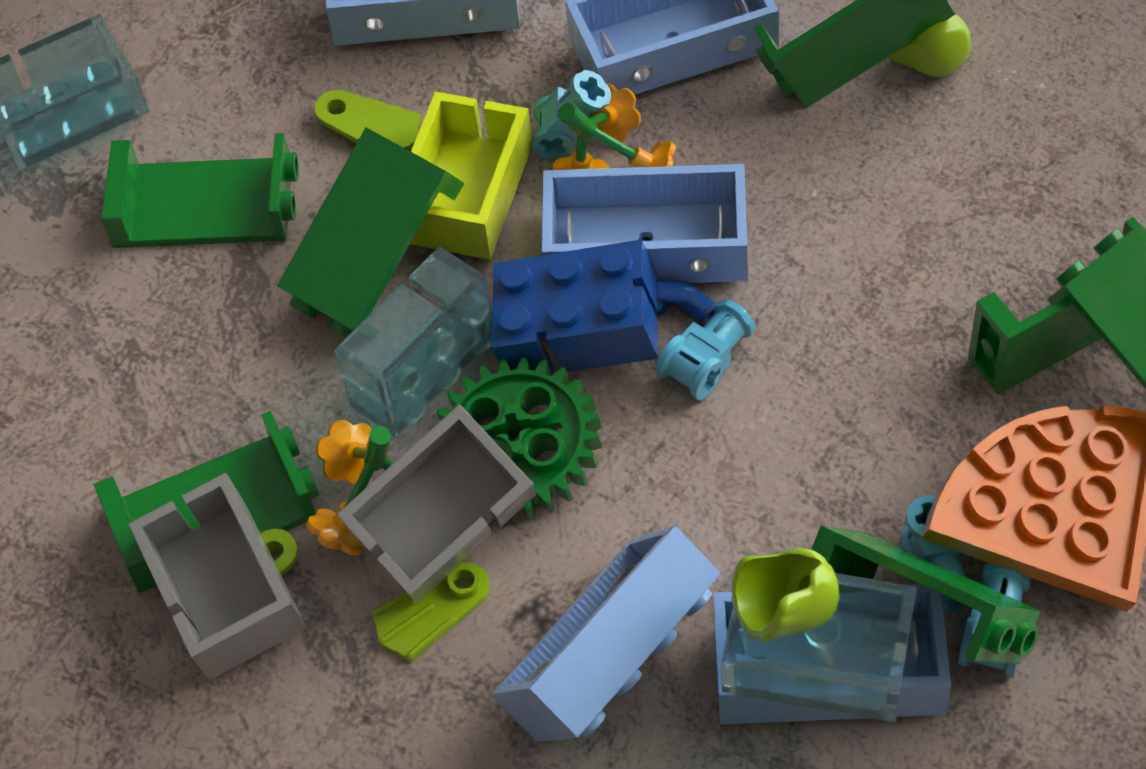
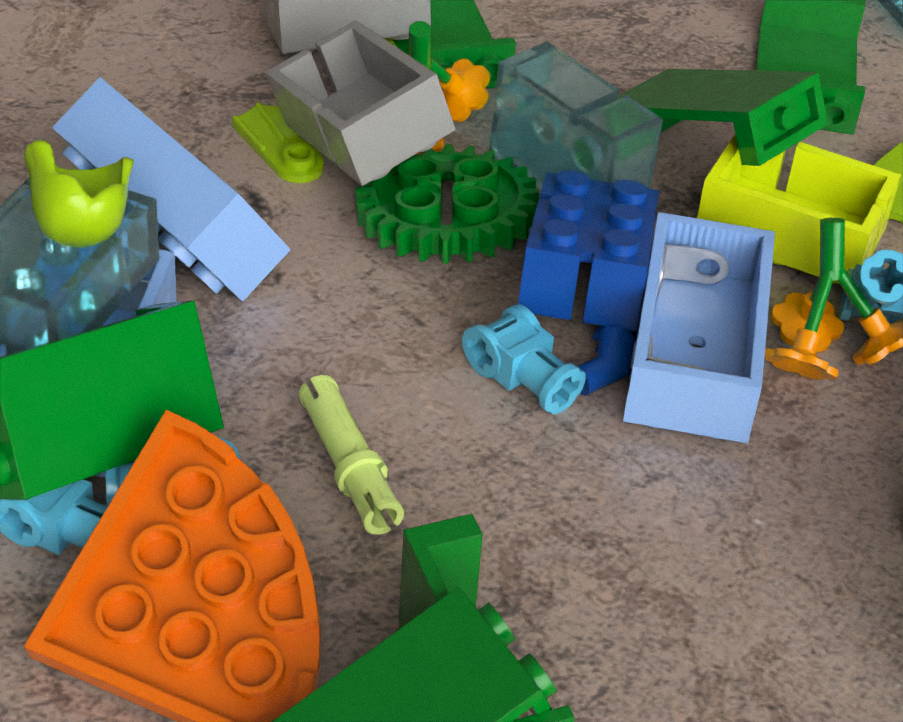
camera: 90 degrees right, 15 degrees down
(872, 438) = (358, 470): none -> yellowish green pin

